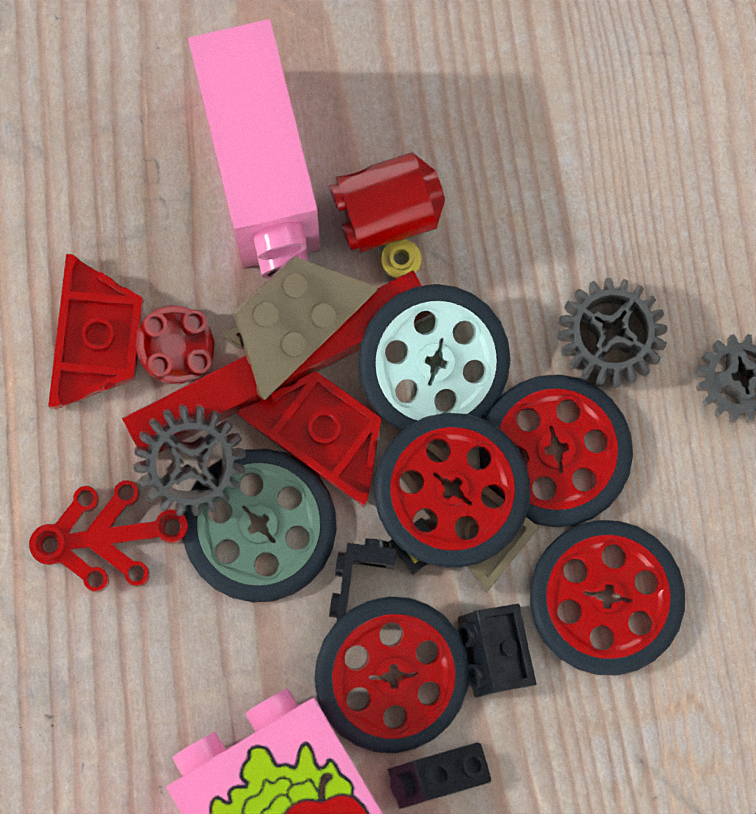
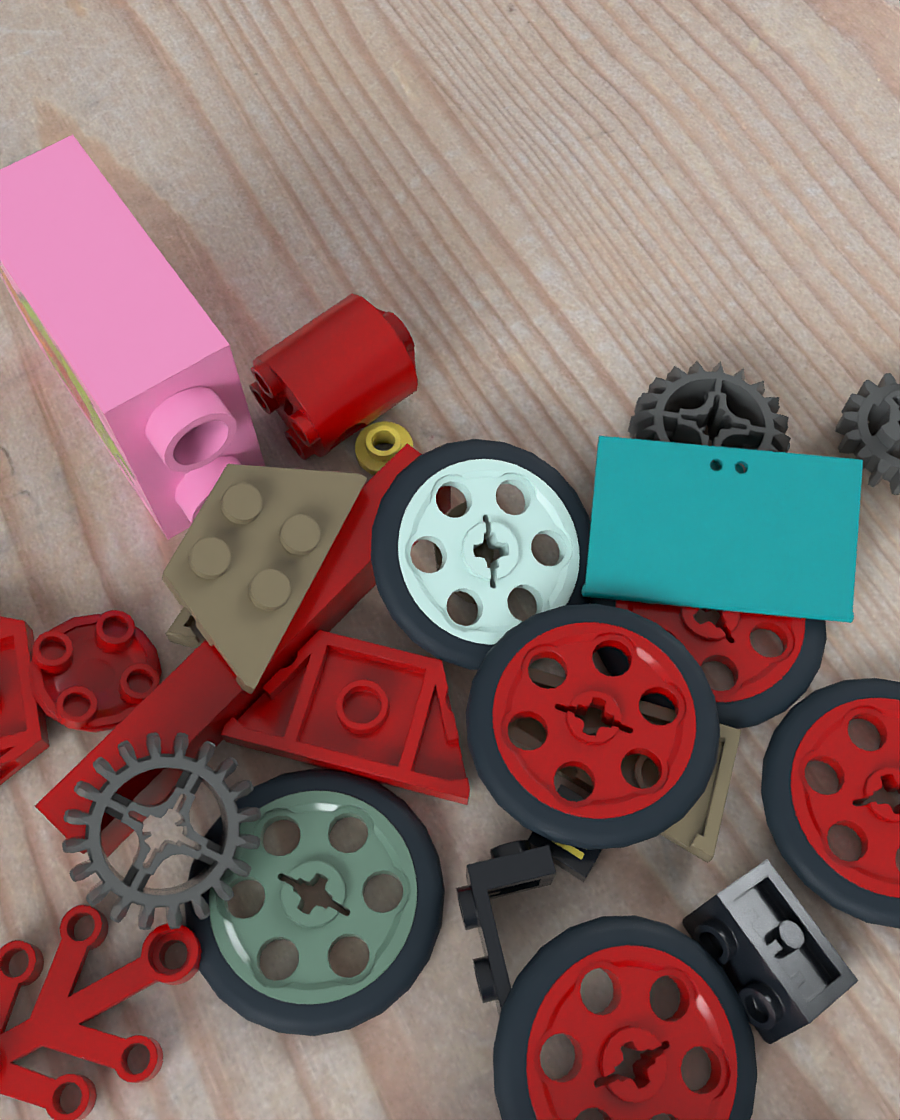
camera: 20 degrees left, 15 degrees down
(571, 401) = (721, 537): none -> teal container

